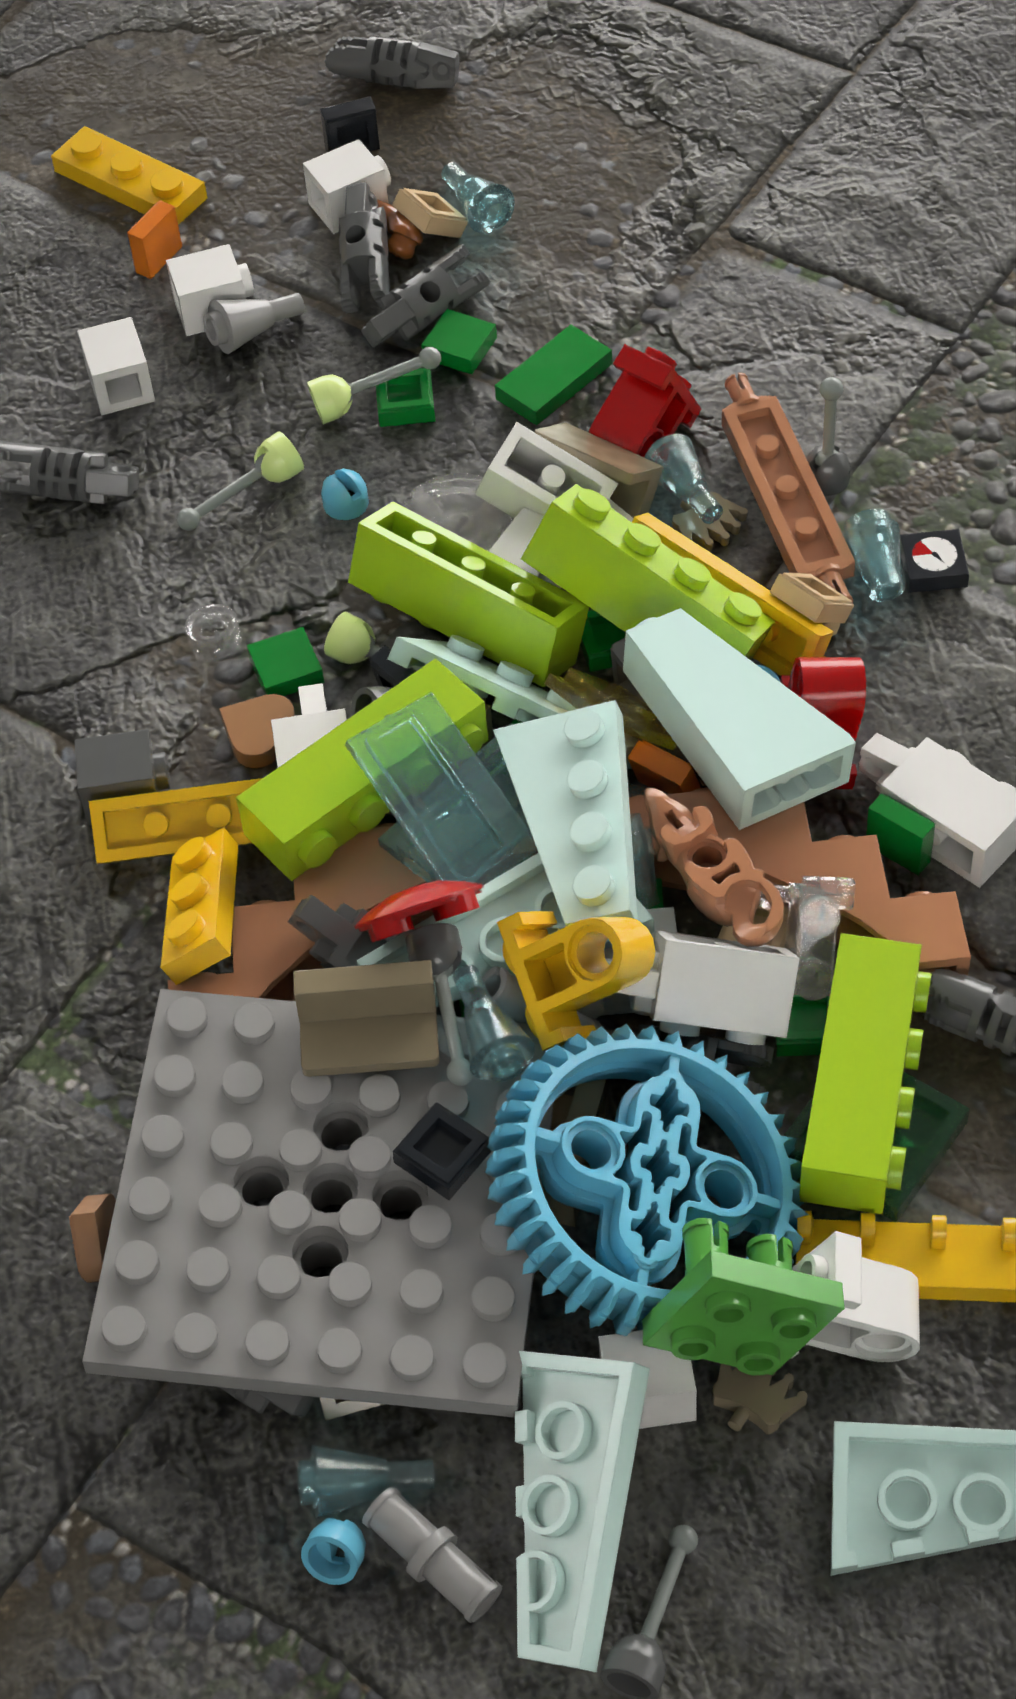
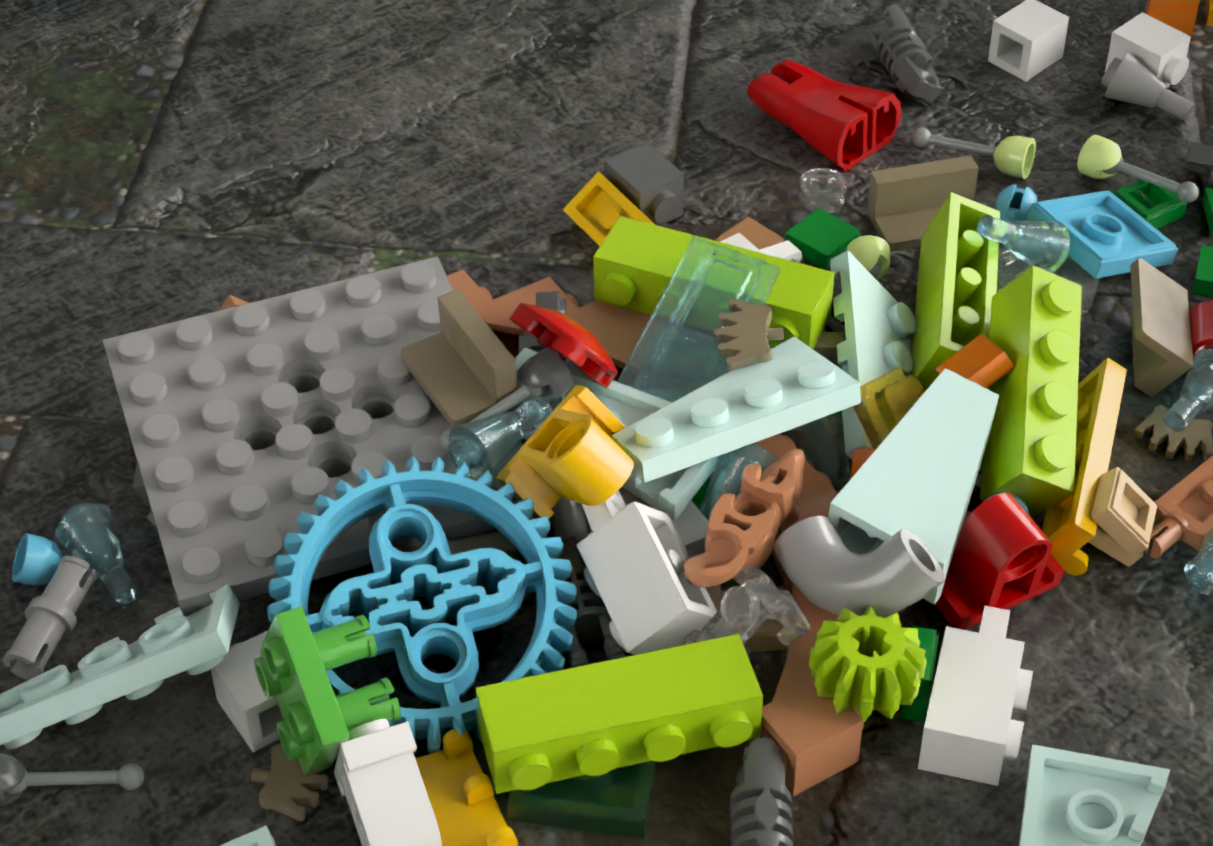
camera: 60 degrees right, 10 degrees down
(102, 576) = (831, 116): none -> red piece
(200, 905) = (542, 259): yellow plate -> none
(301, 562) = (909, 196): none -> dark tan panel
(432, 447) = (1105, 233): none -> medium azure tile
(442, 1151) = (370, 449): black tile -> none
(443, 495) = (1034, 242): none -> clear light blue cone
(492, 758) = (746, 334): none -> dark tan piece
(535, 473) = (1105, 323): white hinge -> none
(602, 614) = (979, 362): none -> orange tile
(825, 823) = (836, 578): none -> light grey cylinder
(917, 853) = (867, 663): none -> lime gear

